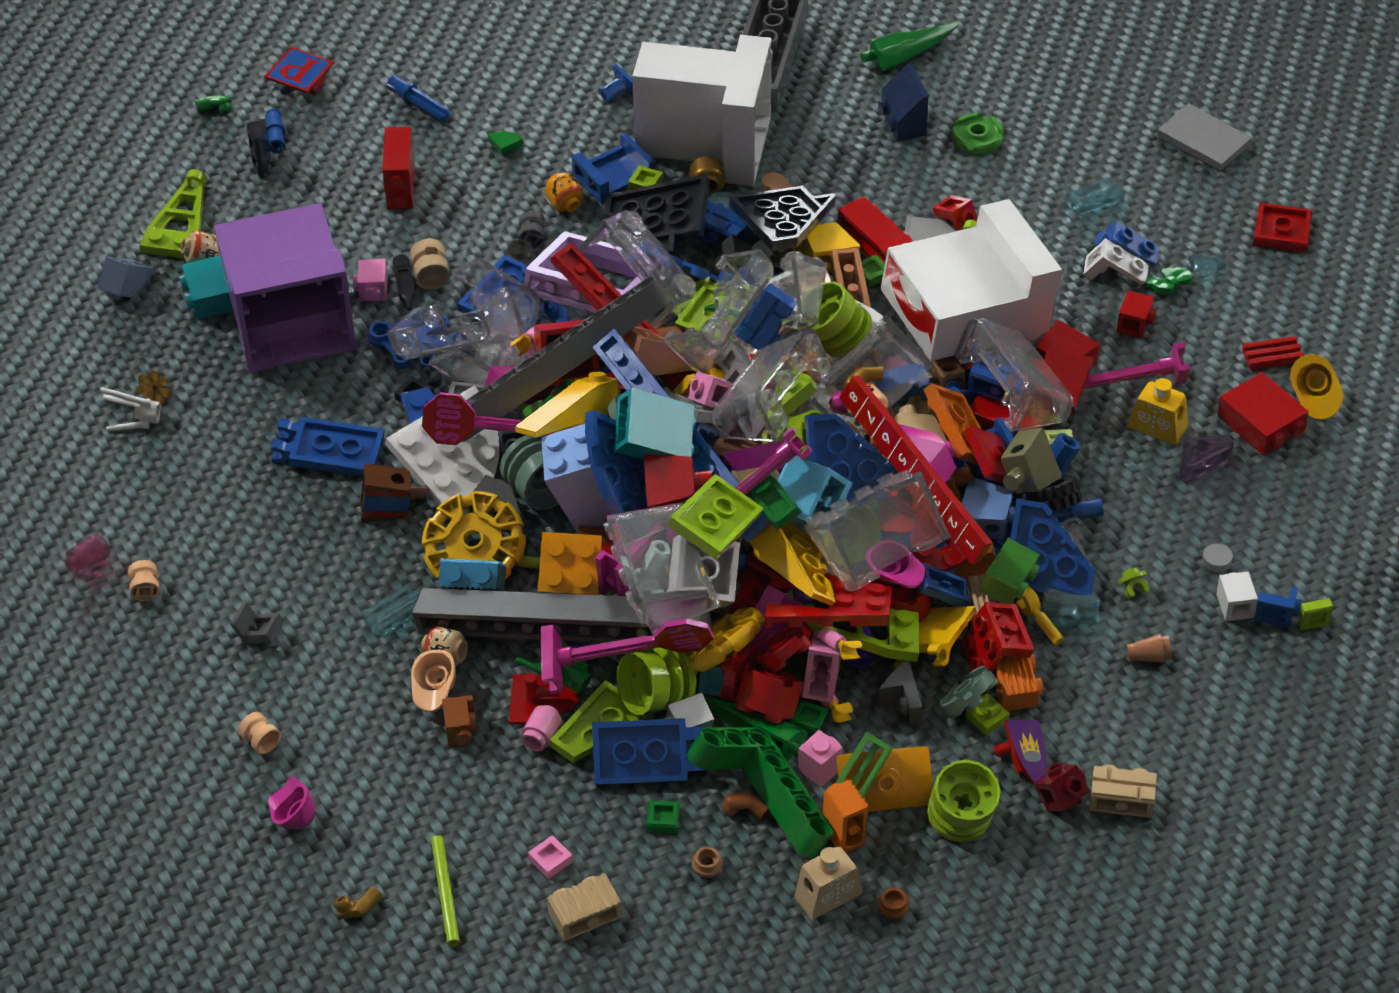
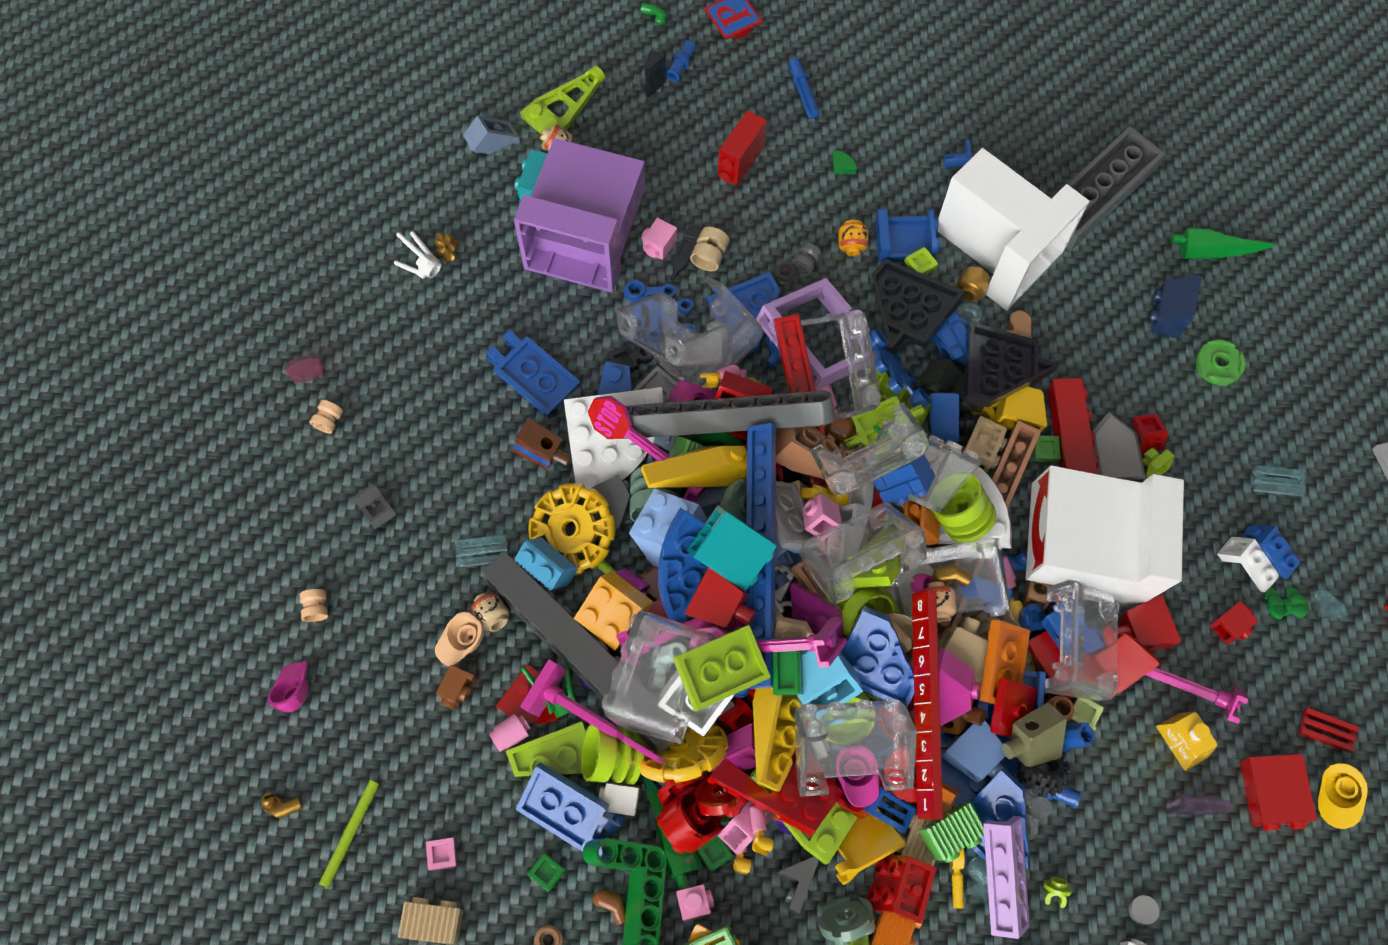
camera: 30 degrees right, 20 degrees up
(1080, 582) = (1006, 877): none -> lavender fence

